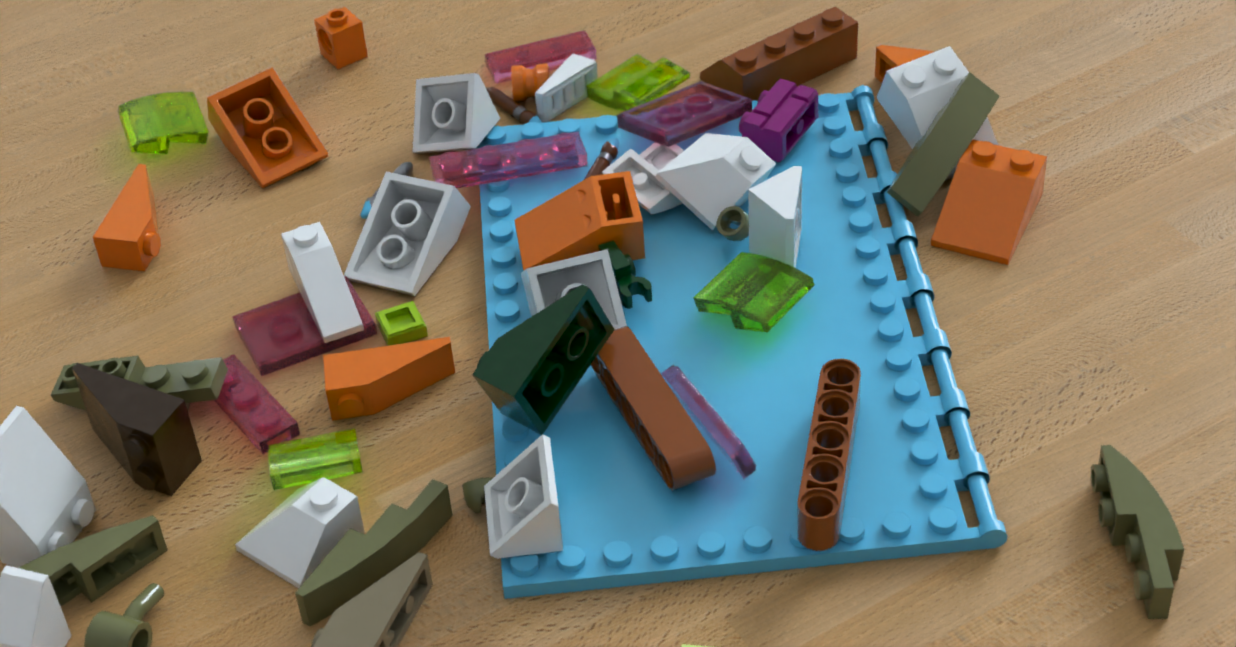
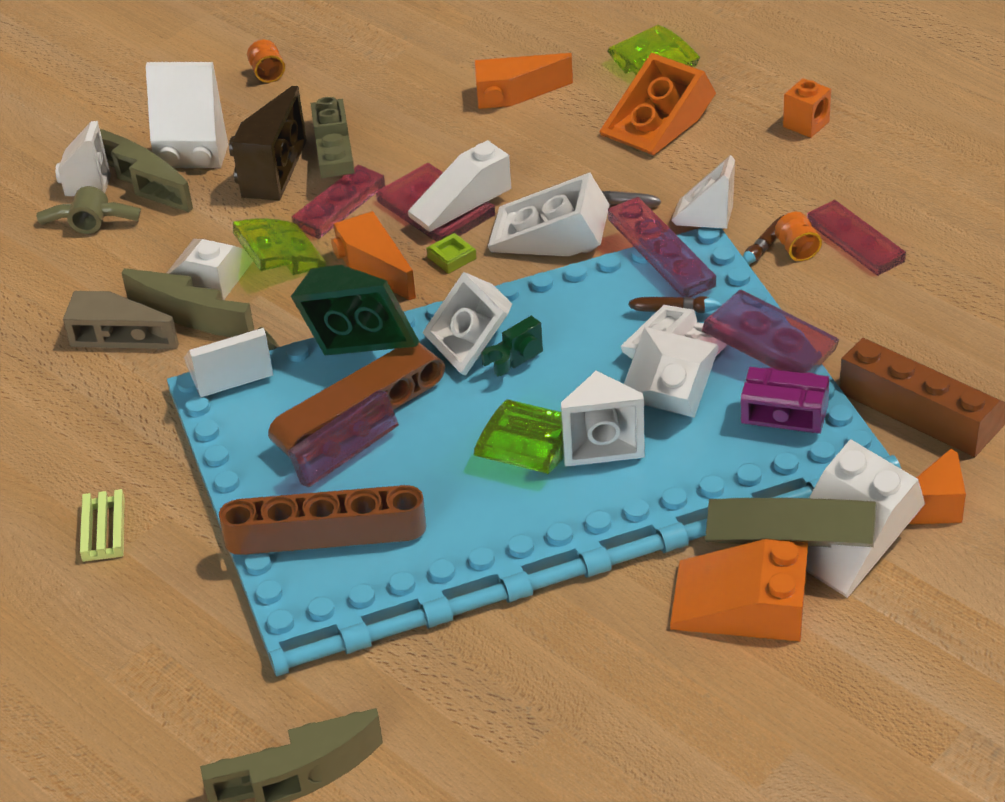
camera: 75 degrees right, 0 degrees up
(566, 87) = (818, 257): white slope -> none
(581, 220) = (574, 312): orange slope -> none
(636, 83) = (833, 303): clear neon green slope -> none

